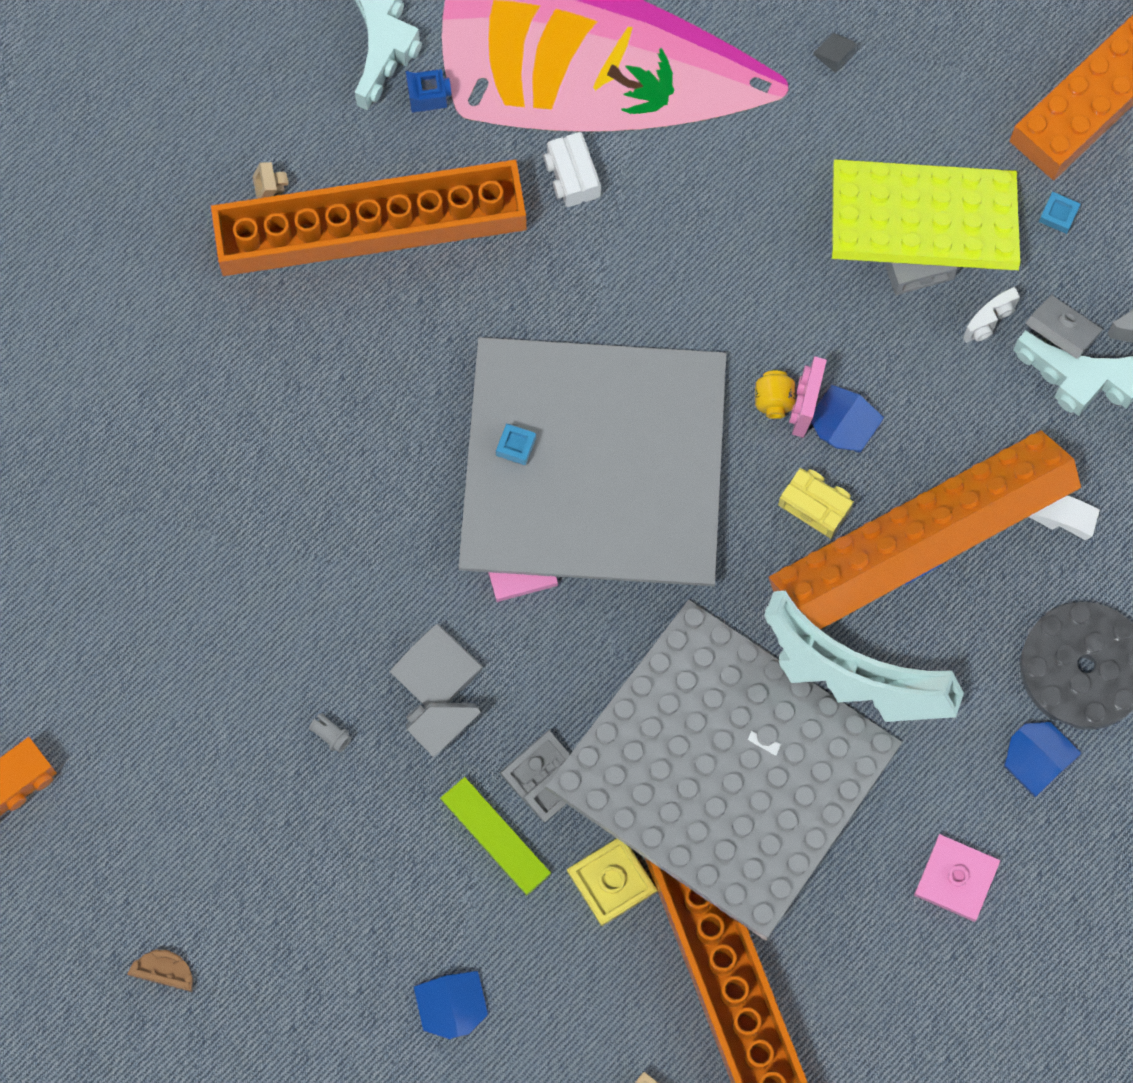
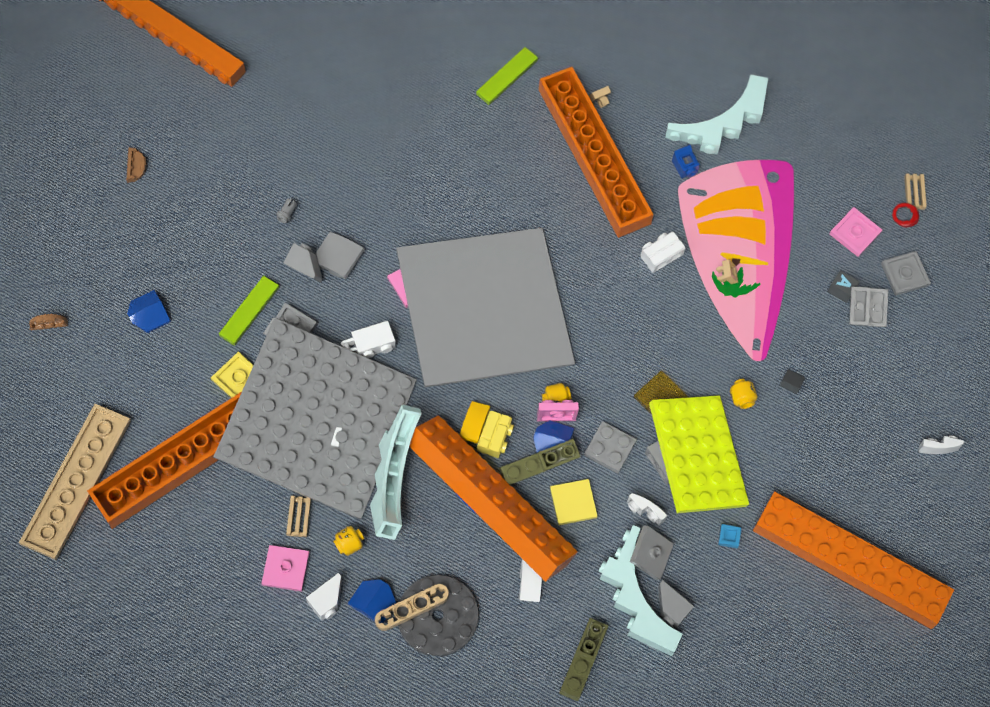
camera: 70 degrees right, 5 degrees down
(181, 318) = (507, 76): none -> lime tile
(516, 444) = (479, 258): dark azure plate -> none
(606, 651) = (371, 340): none -> white brick
(635, 83) = (729, 270): none -> tan tile
(787, 527) = (474, 422): none -> yellow slope
(807, 244) = (658, 388): none -> clear yellow tile
(842, 124) = (743, 394): none -> yellow head
(875, 341) = (610, 447): none -> light grey plate
(879, 446) = (540, 462): none -> olive slope
(881, 826) = (300, 500): none -> tan tile
(940, 767) = (348, 540): none -> yellow head
(951, 418) = (573, 502): none -> light yellow tile
(1024, 823) = (326, 598): none -> white slope
(1077, 695) = (413, 610): none -> tan beam

